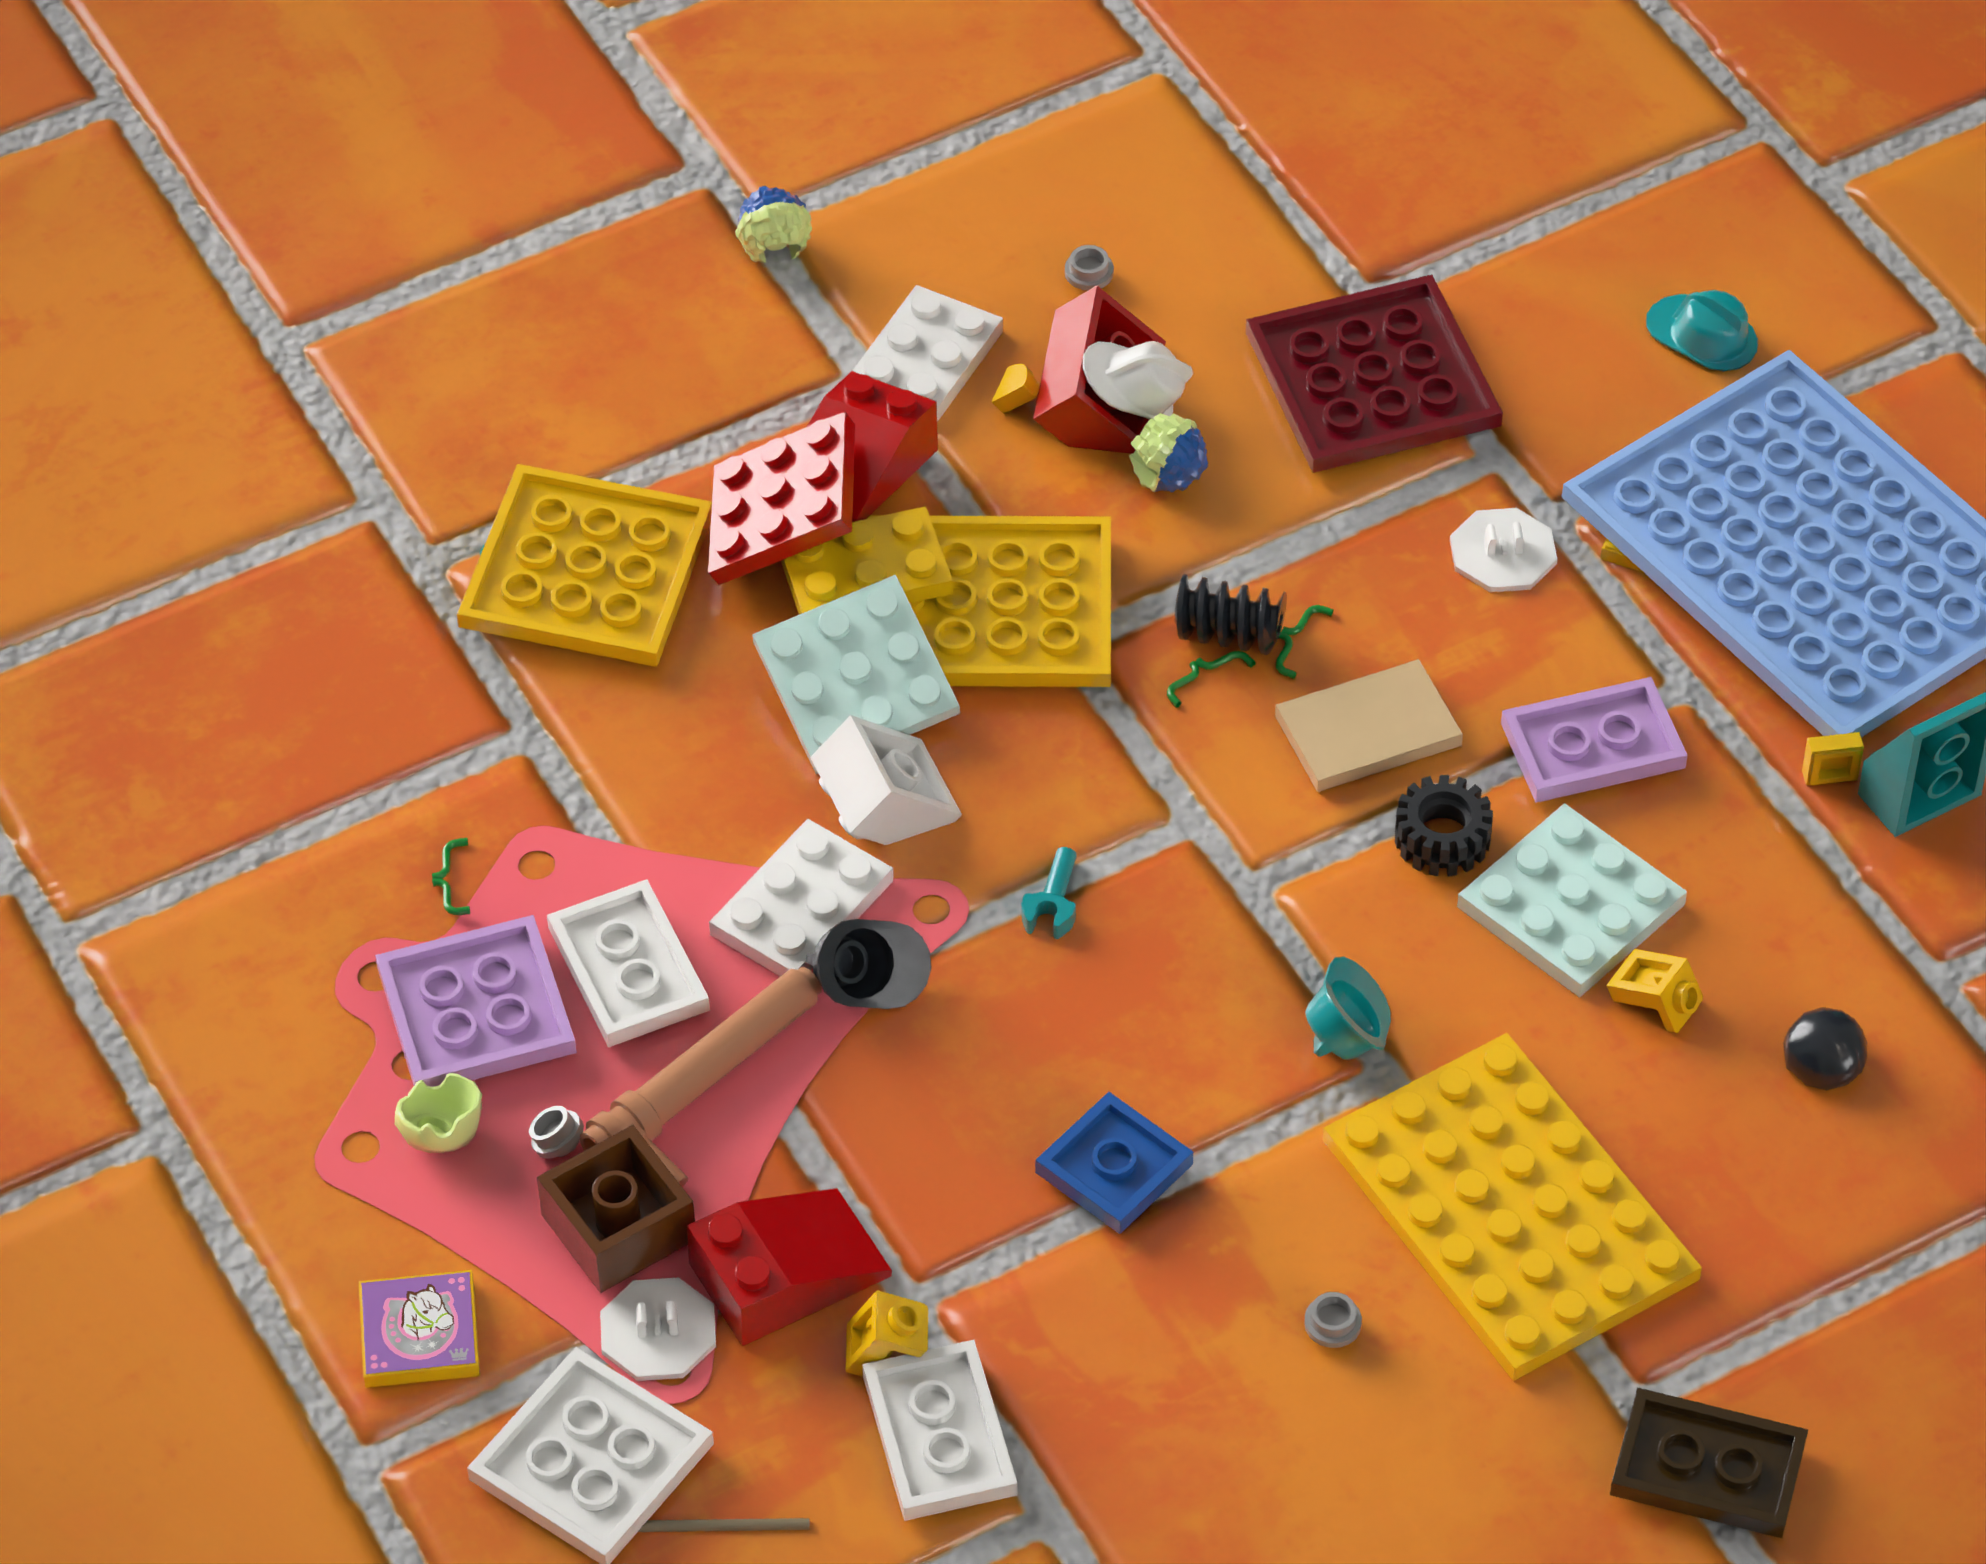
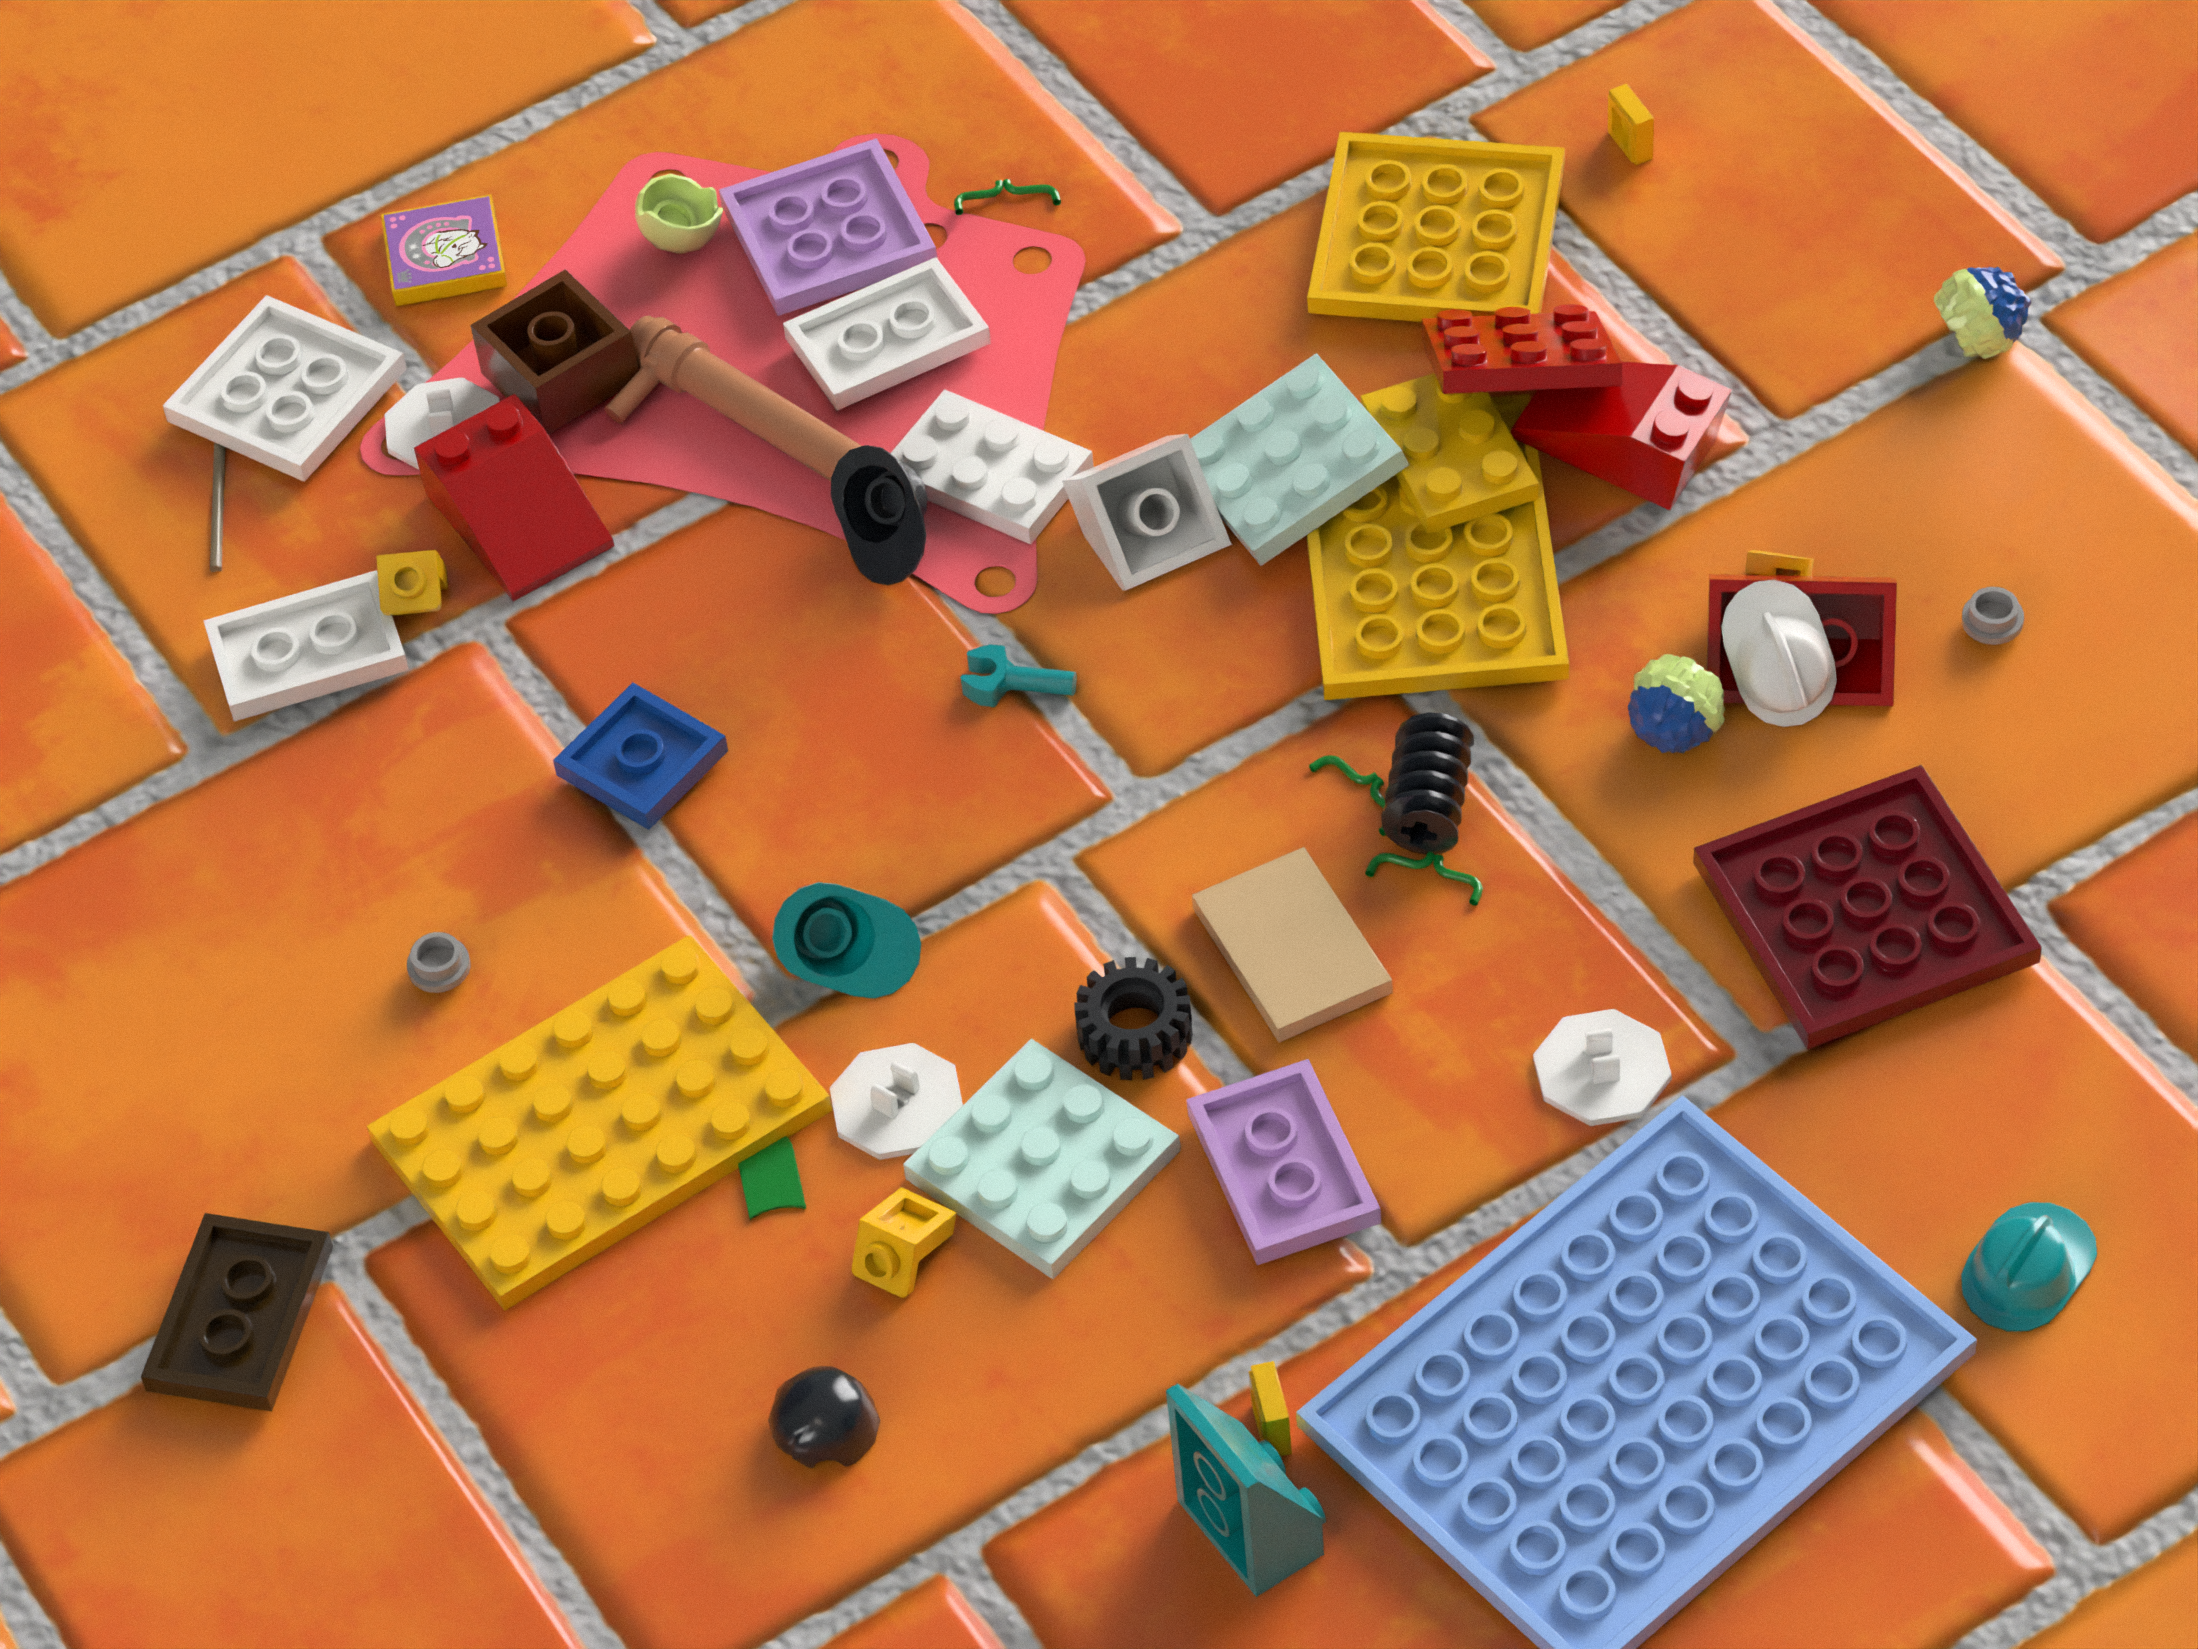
camera: 90 degrees right, 0 degrees up
(491, 423) = (1630, 124): none -> yellow tile
(555, 1132) = (667, 302): light grey plate -> none
(931, 346) = (1820, 483): white plate -> none
(1502, 996) = (894, 1099): none -> white piece
(1581, 1086) = (772, 1179): none -> green piece

